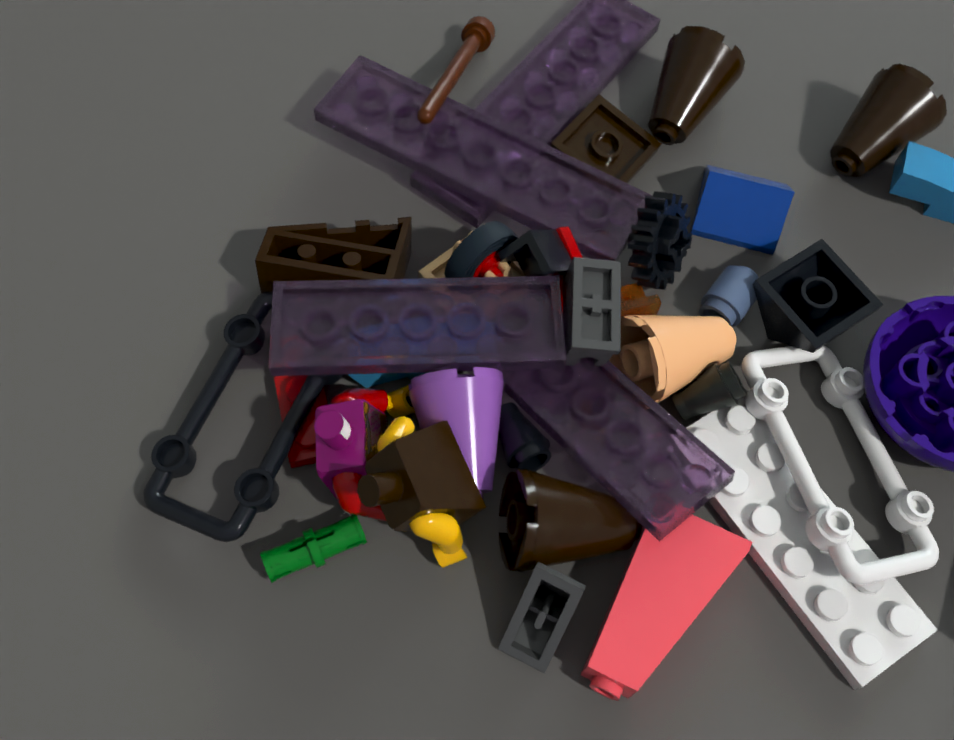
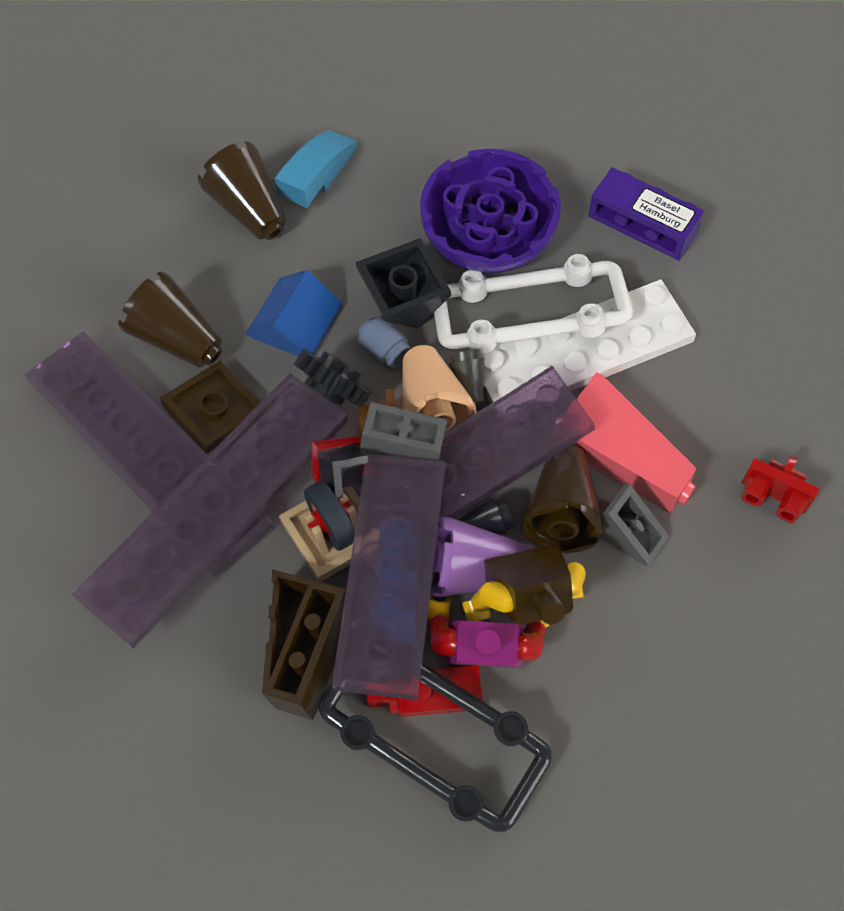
camera: 75 degrees left, 0 degrees up
(313, 547) = (568, 718): green pin -> none
(476, 37) = (58, 492): reddish brown piece -> none

